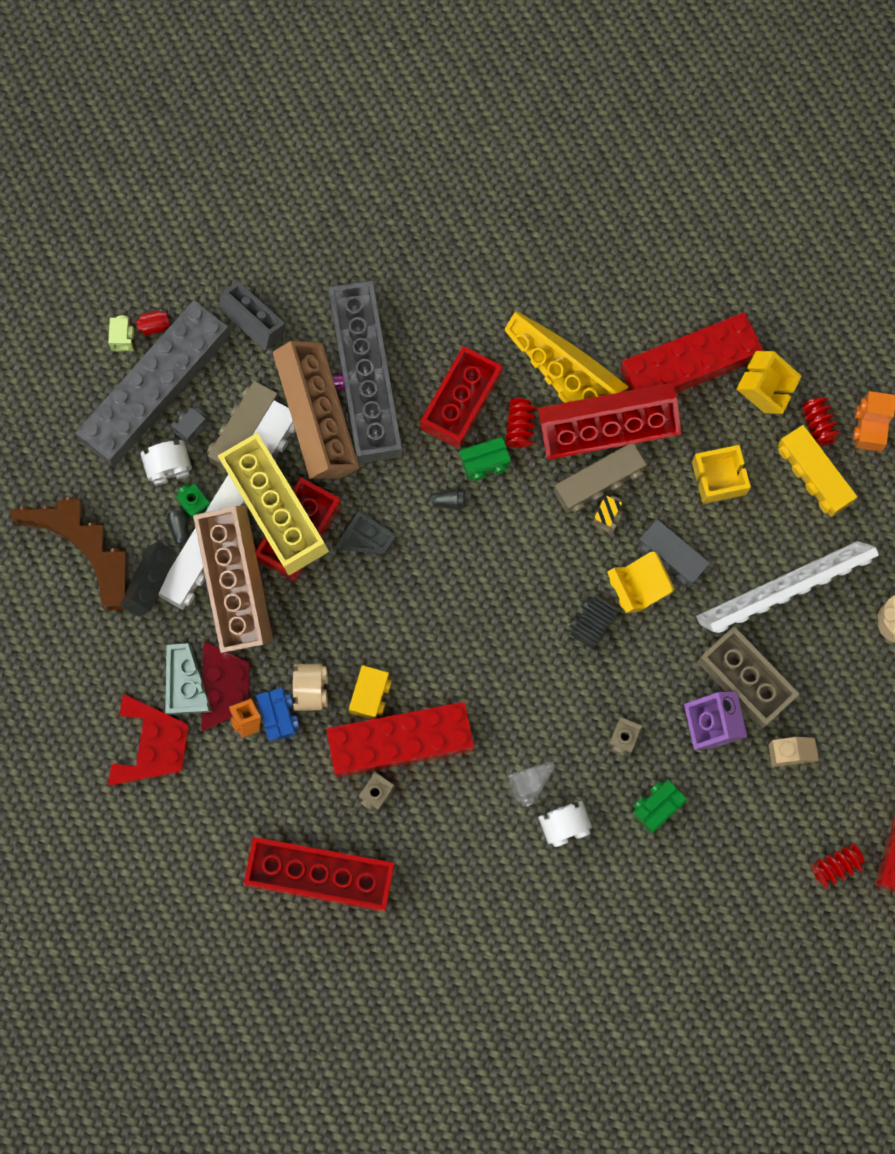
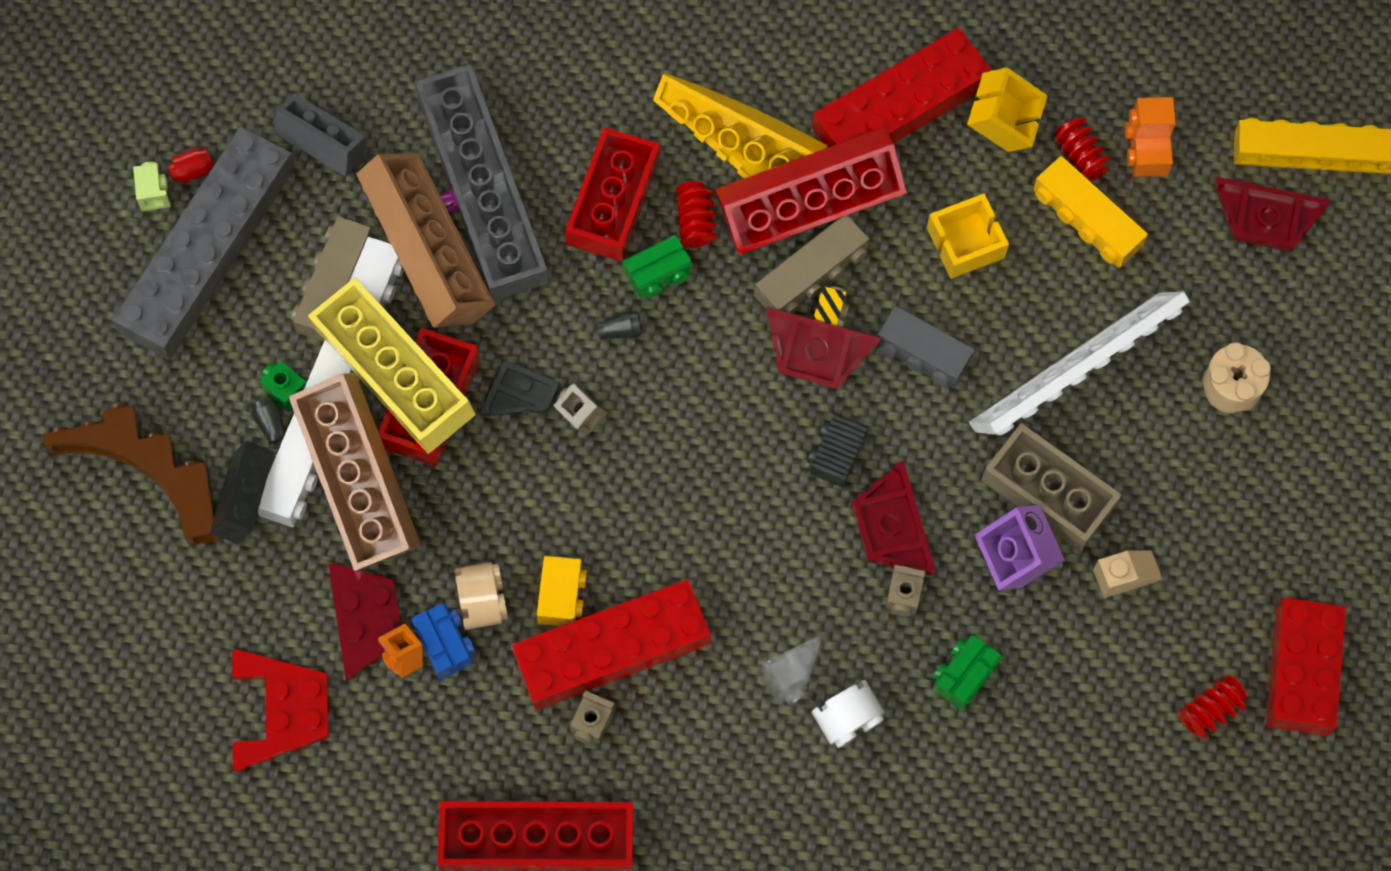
camera: 10 degrees left, 5 degrees down
(166, 461) = (239, 338): white brick -> none
(184, 682) = (311, 619): wing -> none
(190, 425) = (262, 288): dark grey brick -> none
(400, 553) = (587, 416): none -> dark tan brick
(592, 541) = (817, 348): none -> dark red wing
(624, 684) = (892, 523): none -> dark red wing
(641, 583) = (890, 390): yellow bracket -> none

